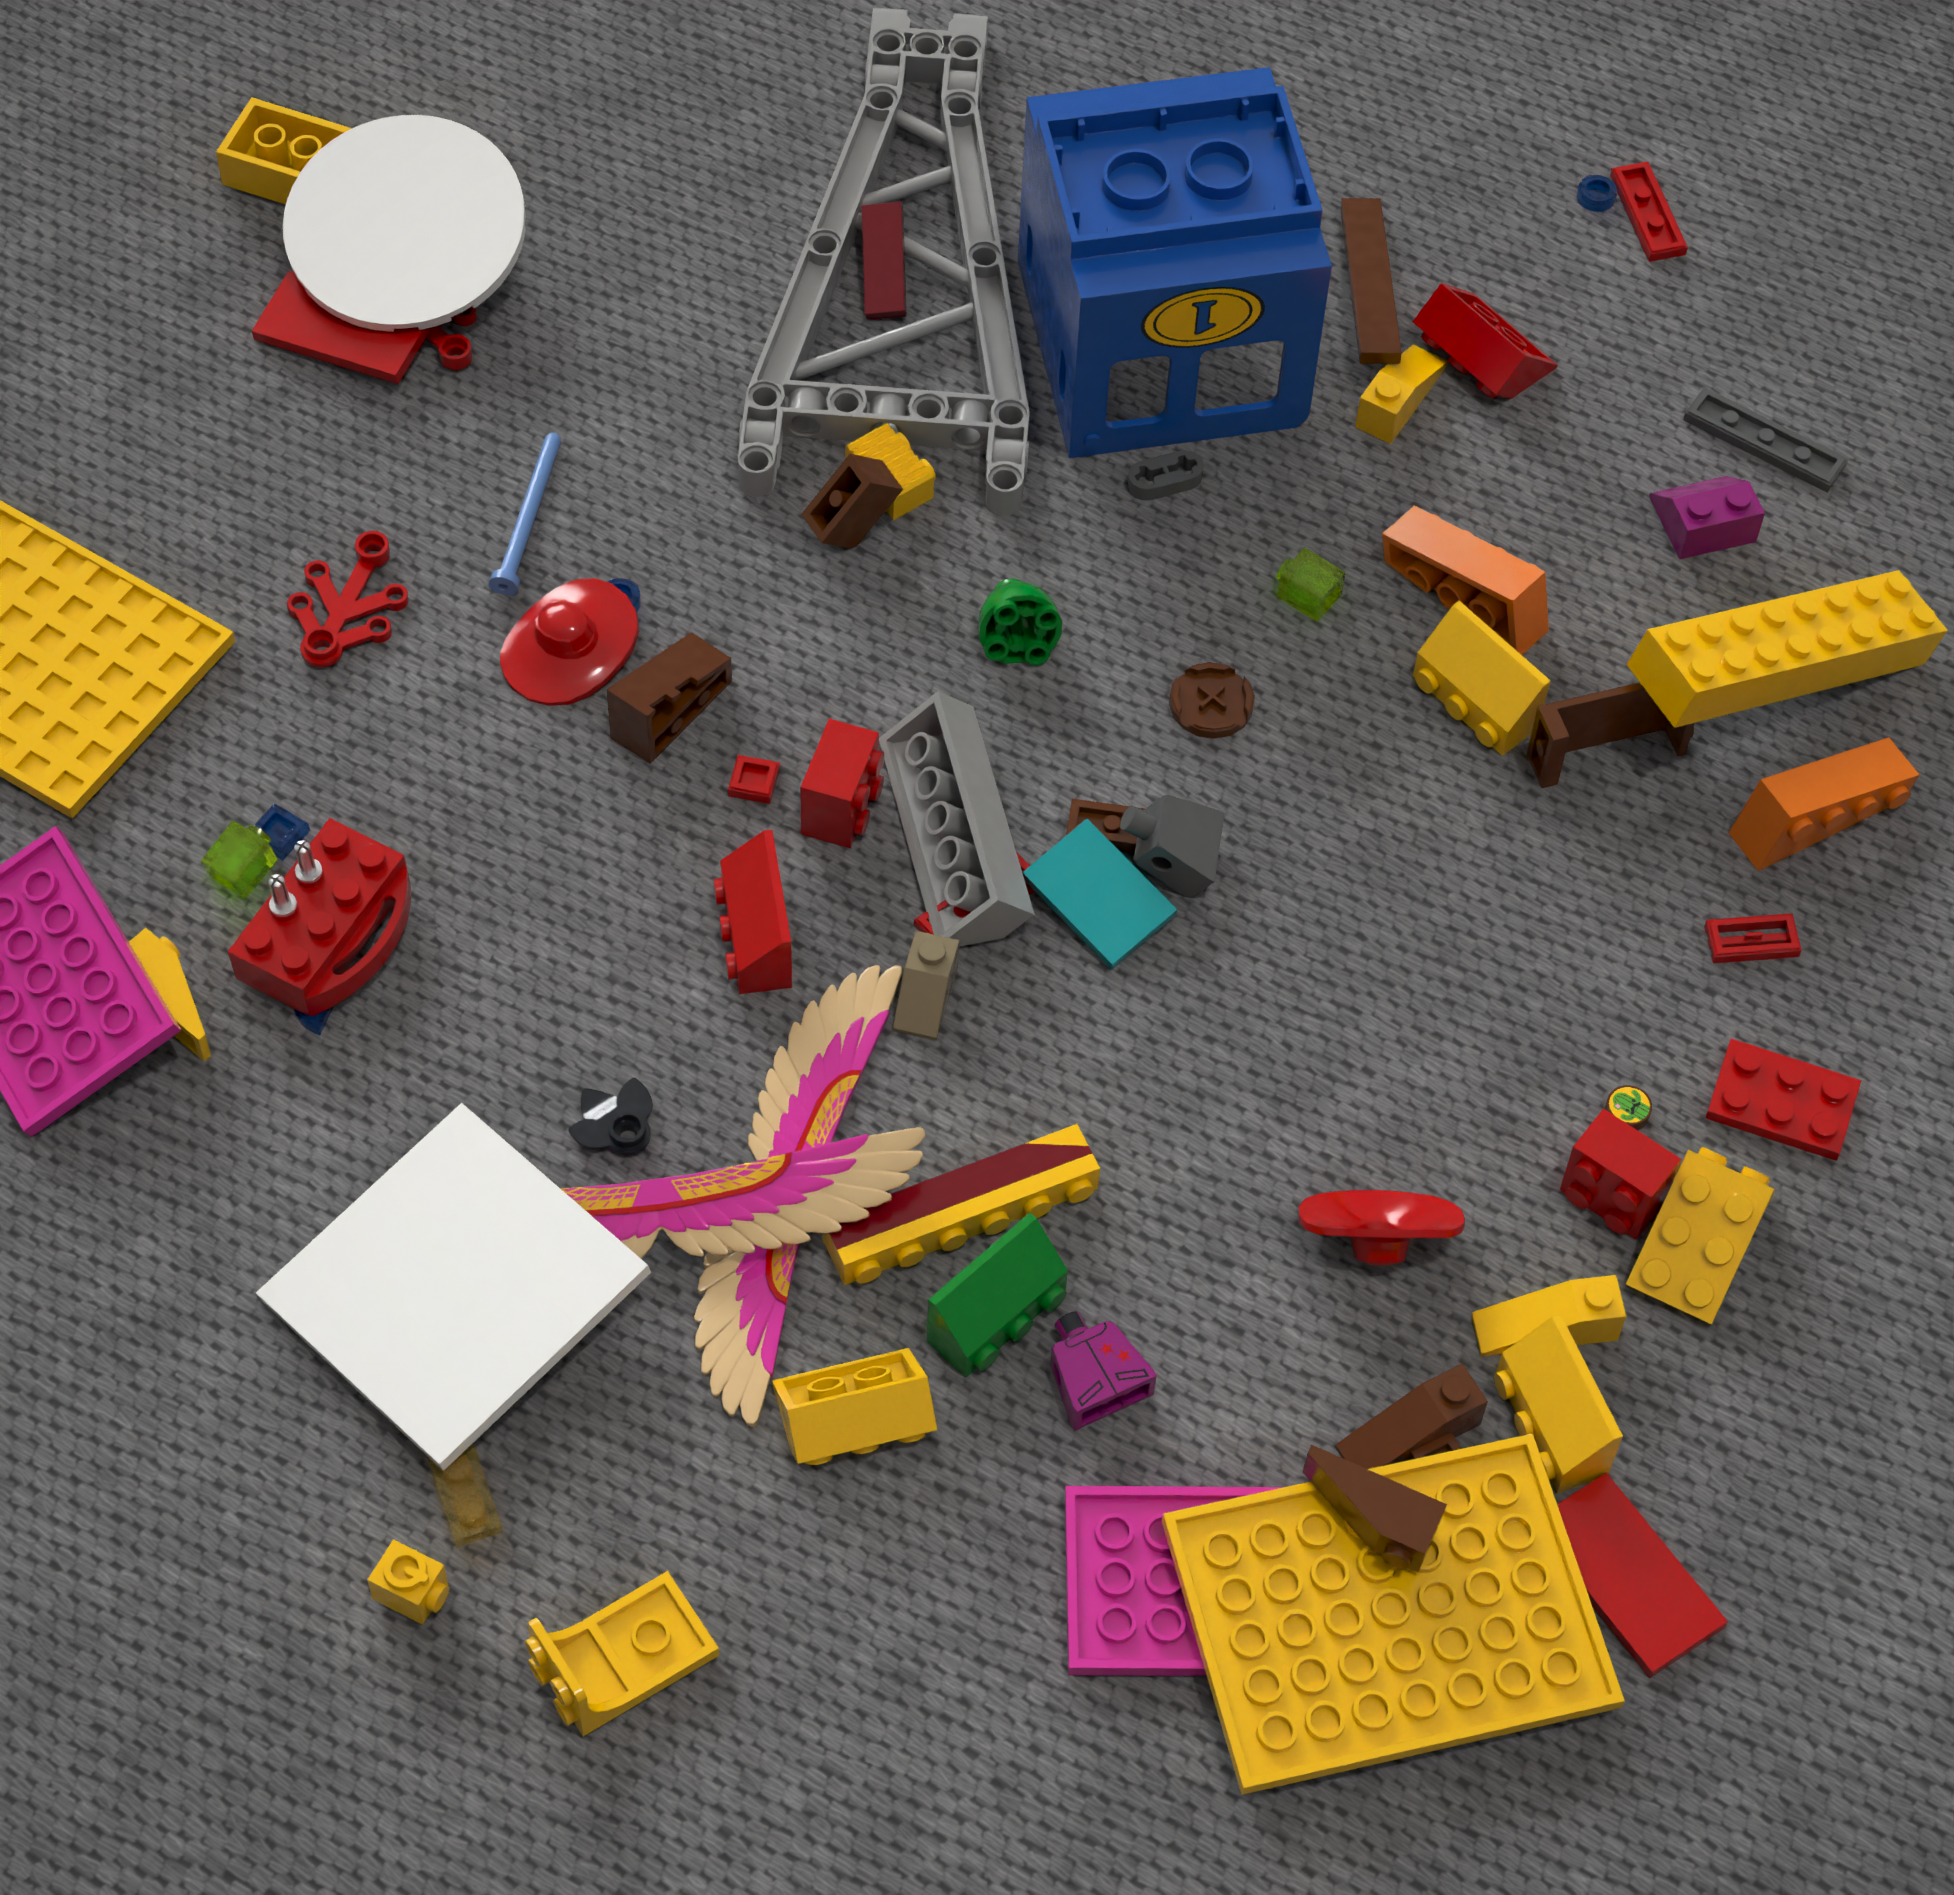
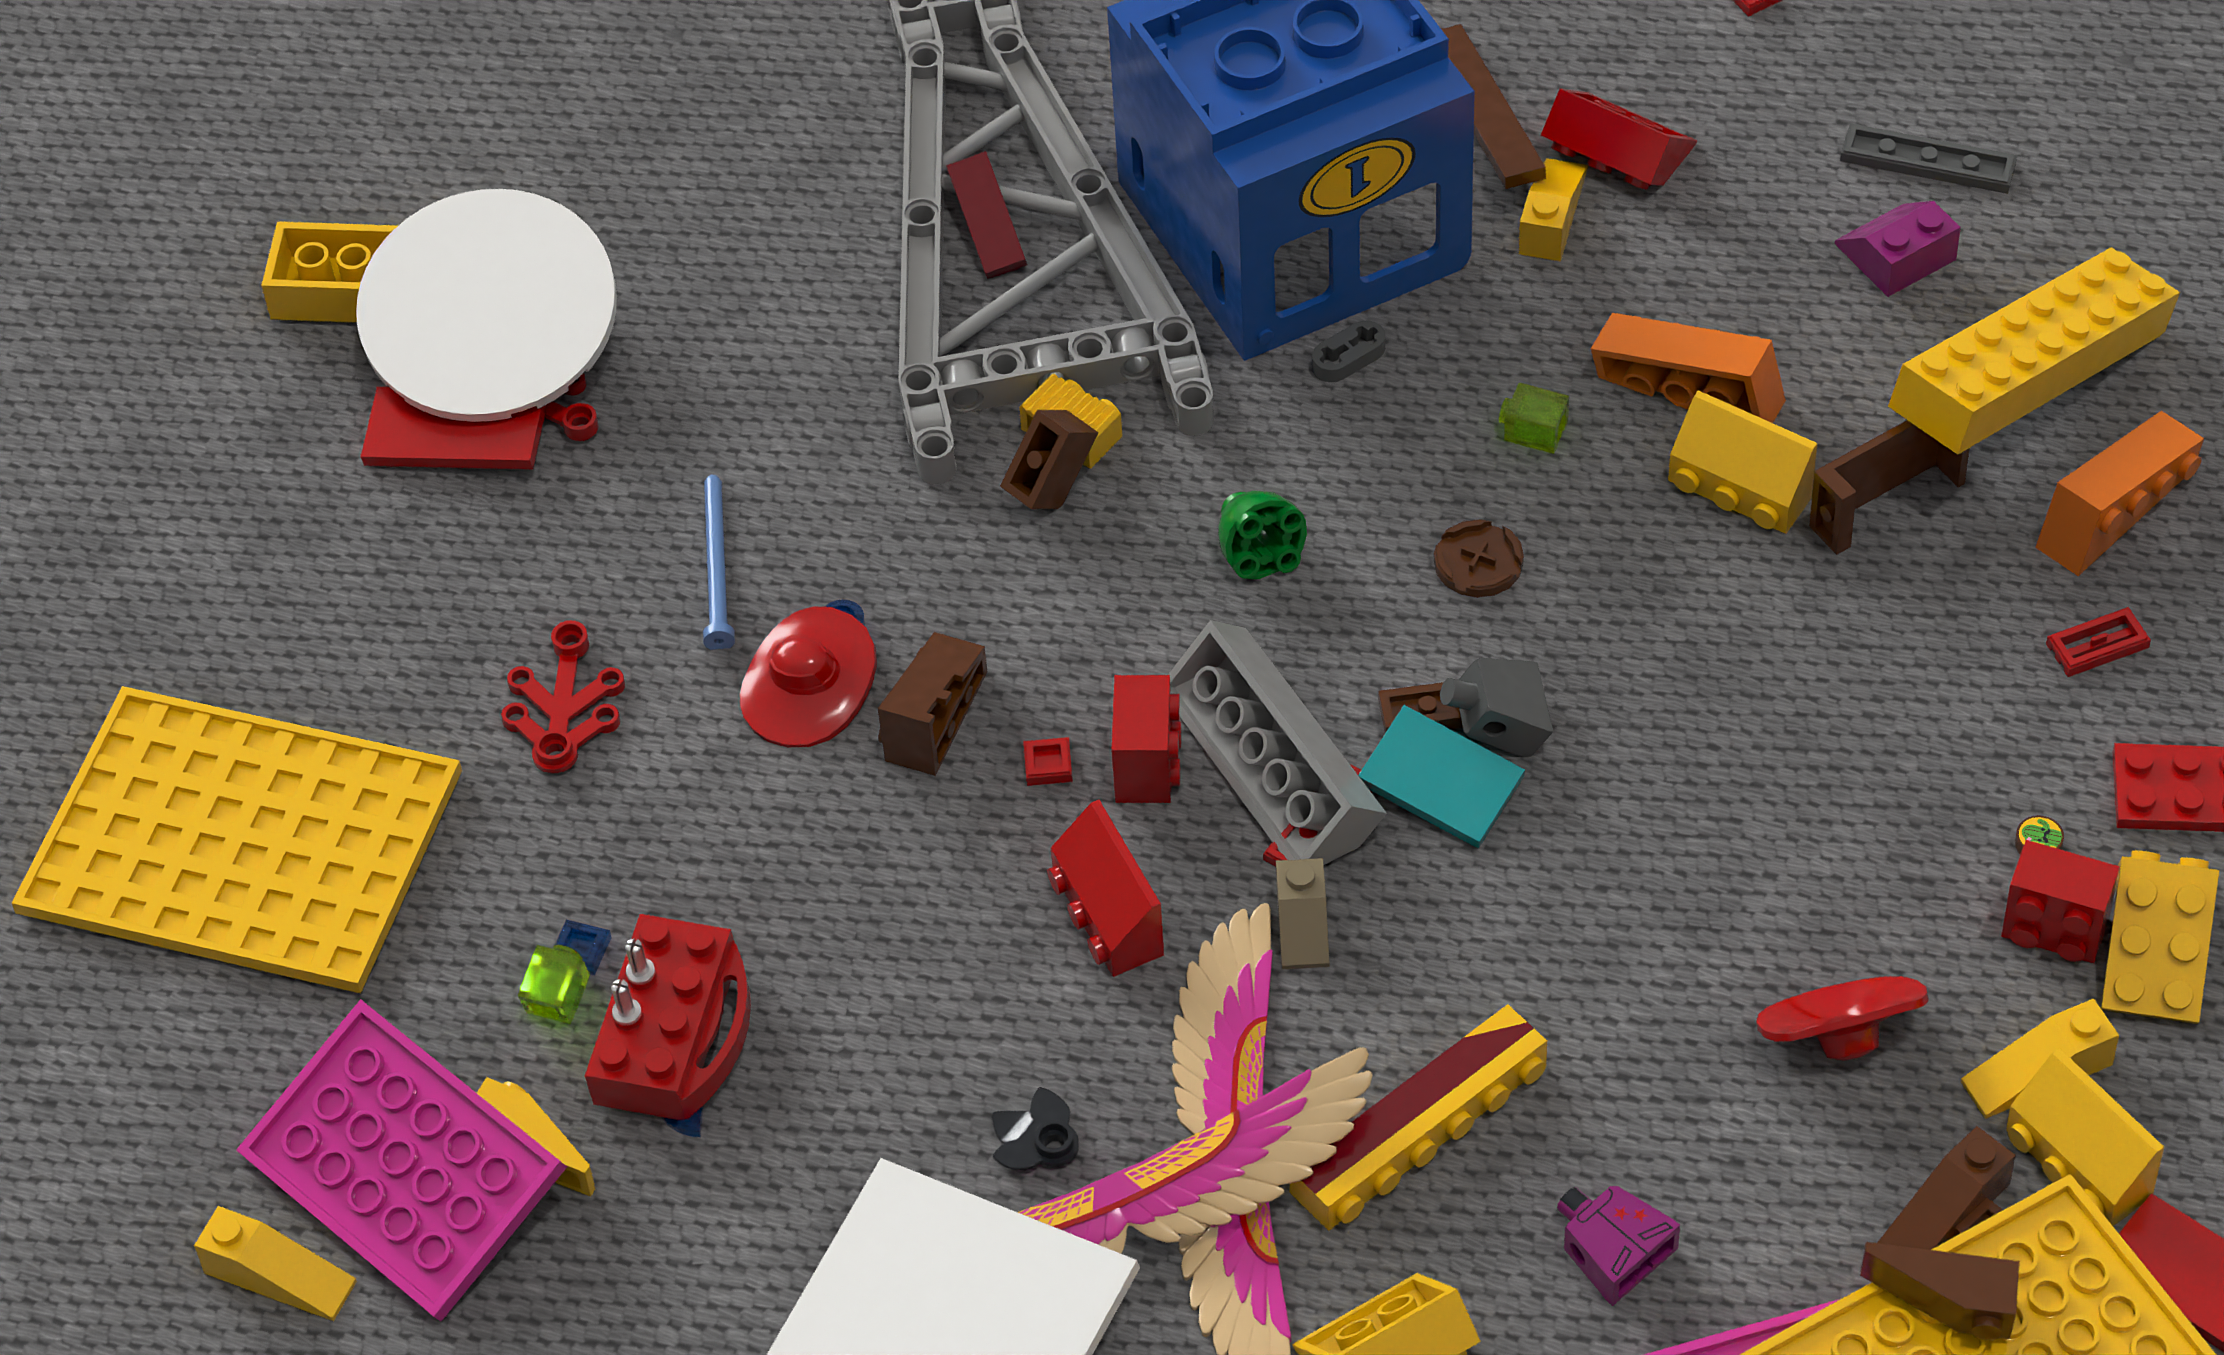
camera: 10 degrees left, 5 degrees down
(996, 1297) = (1492, 1196): green slope -> none

